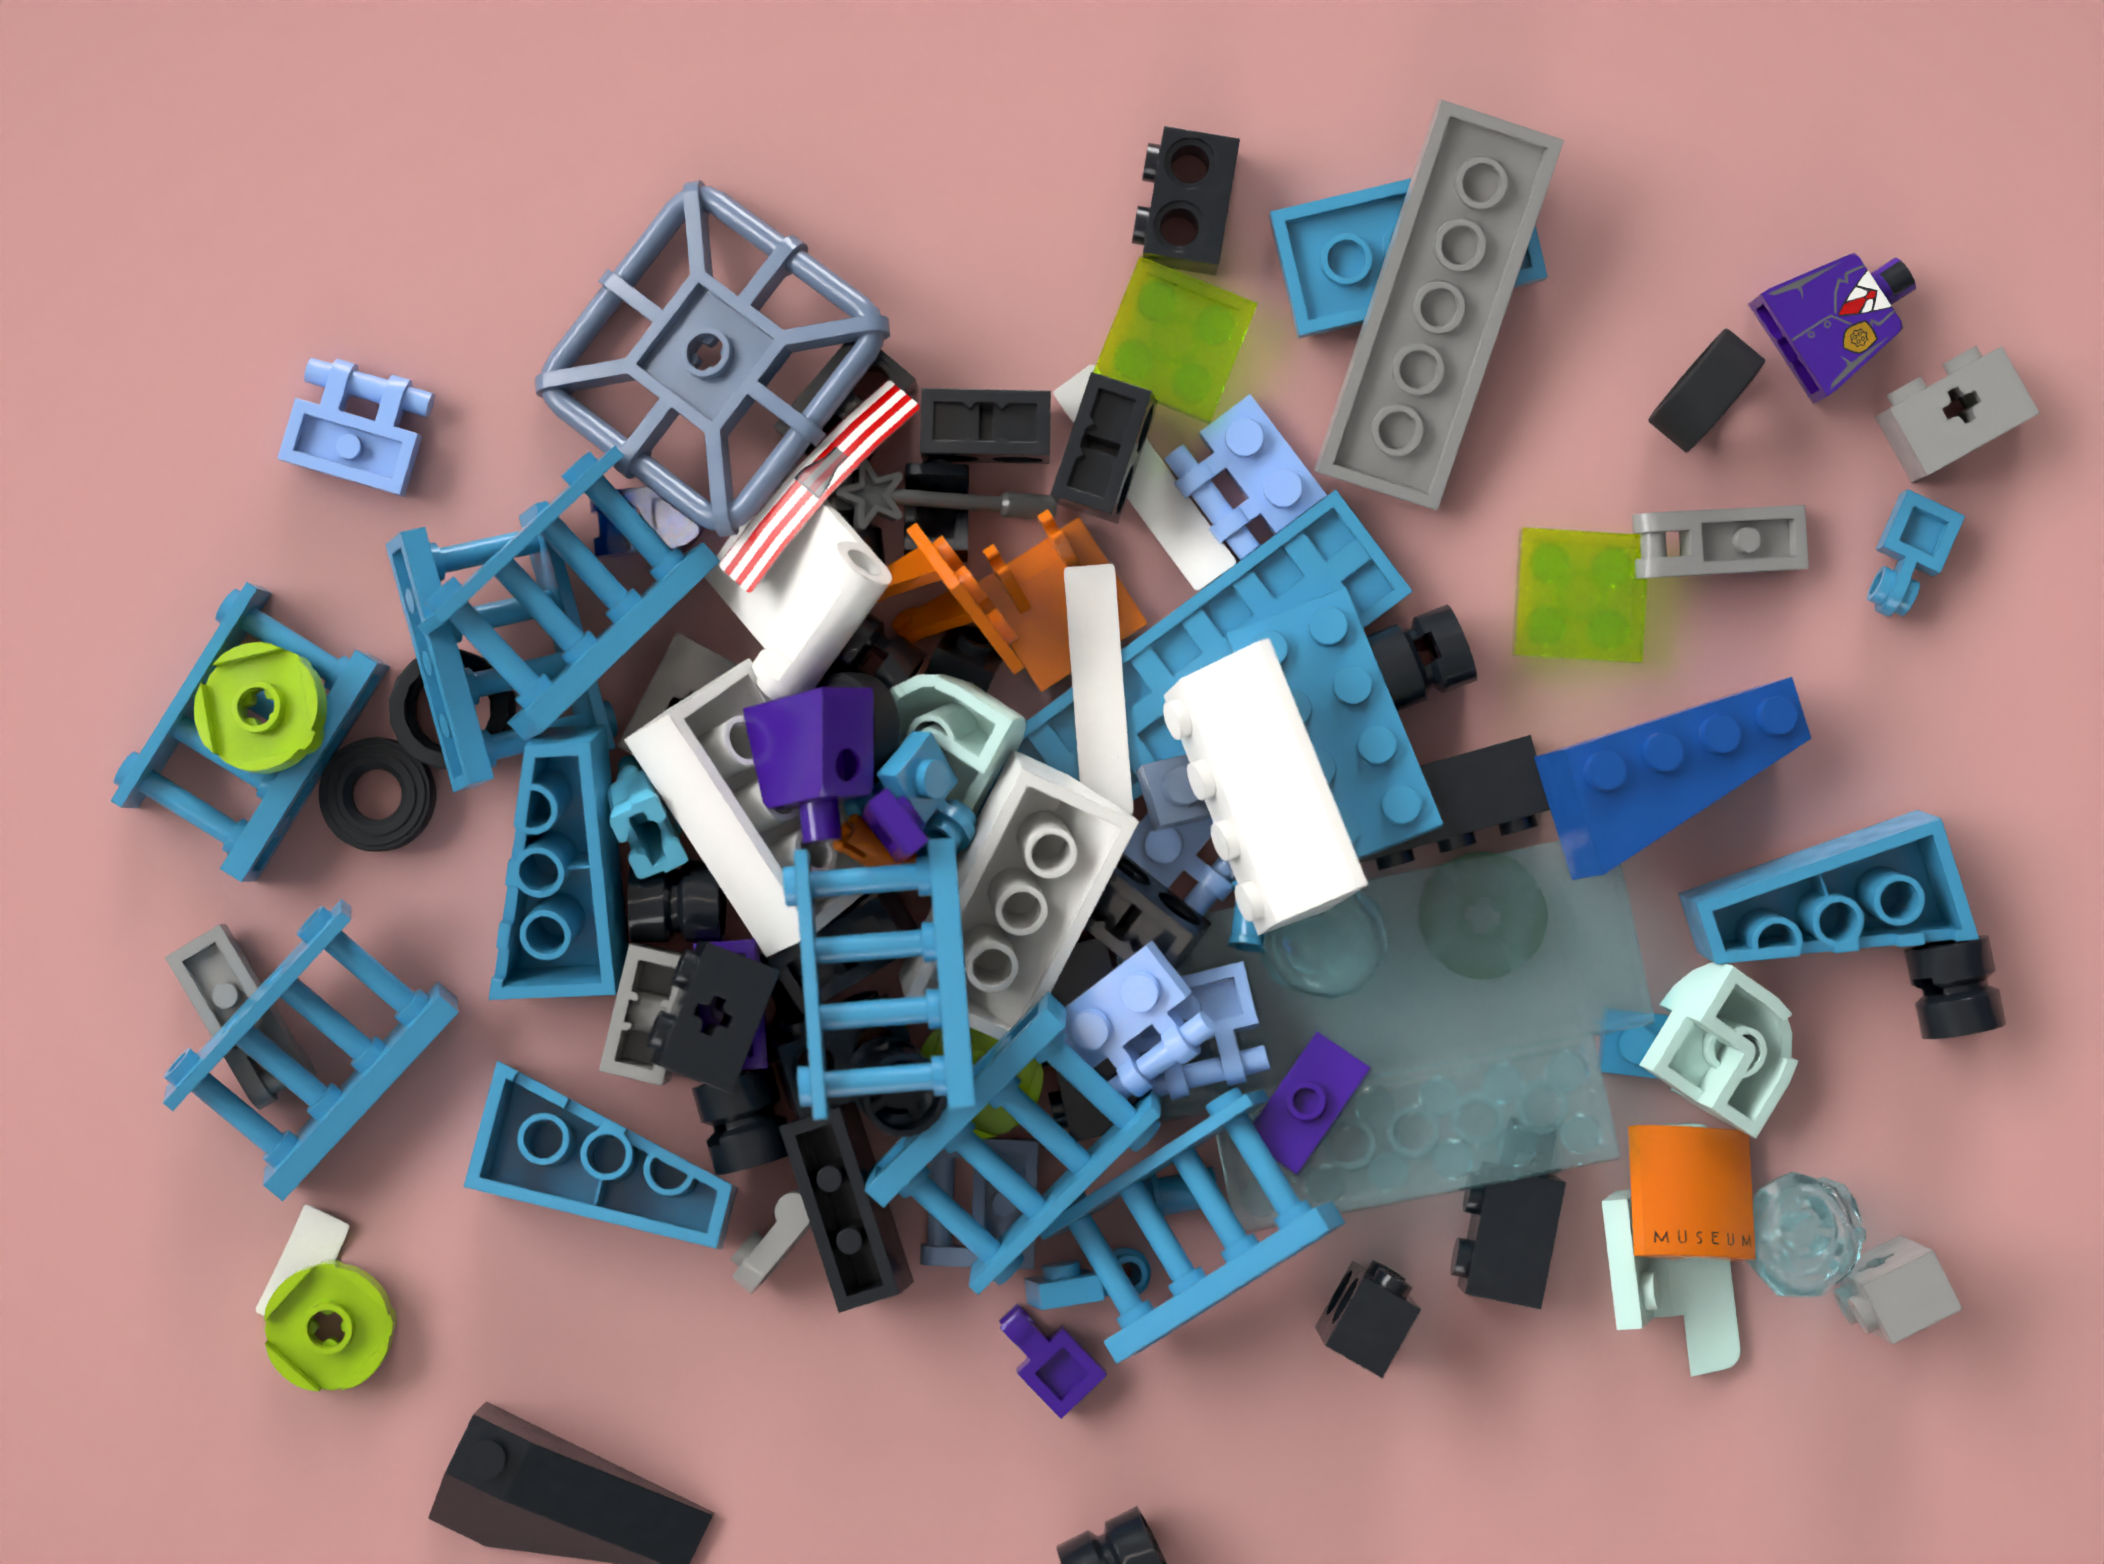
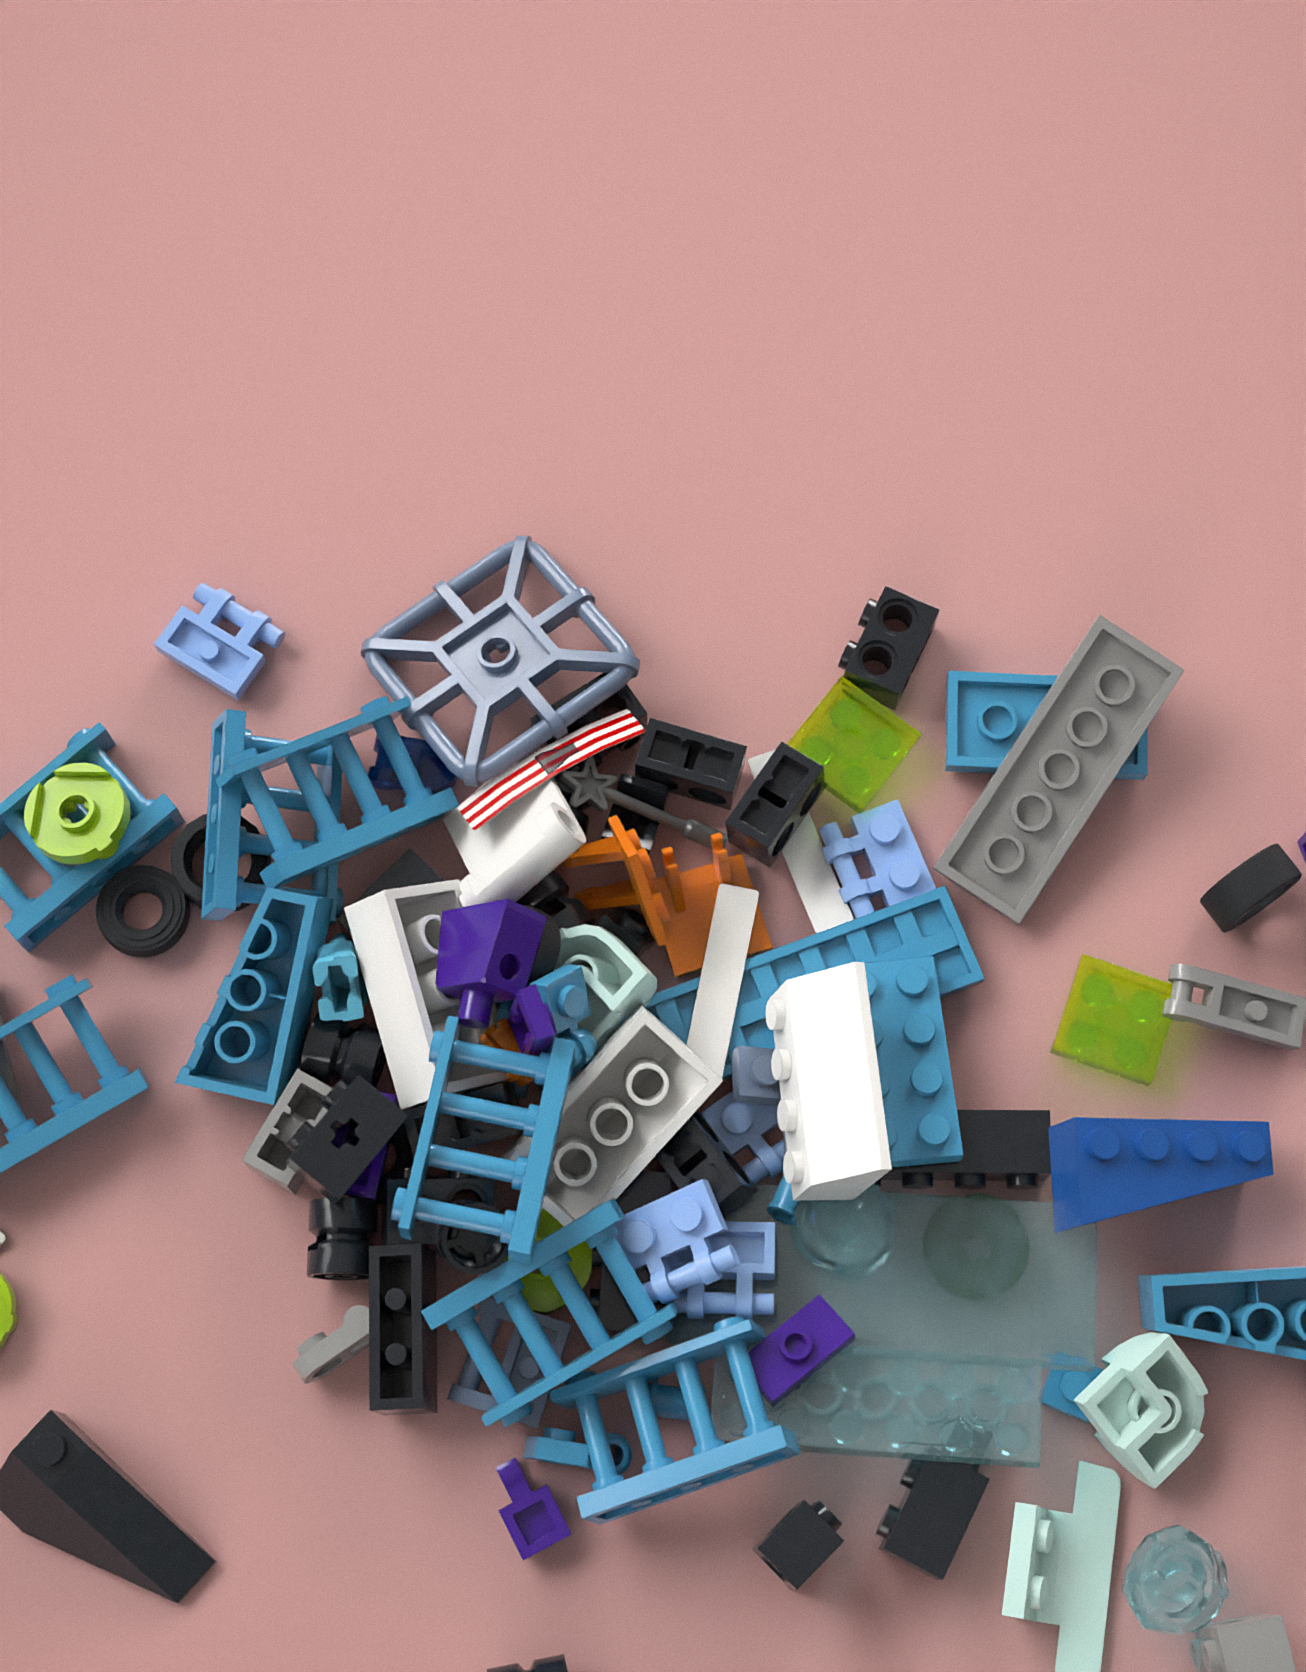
camera: 15 degrees right, 15 degrees down
(576, 1161) = (210, 1239): dark azure wedge -> none
(1401, 665) = (993, 1015): black wheel -> none
(1691, 1193) = (1091, 1519): orange slope -> none

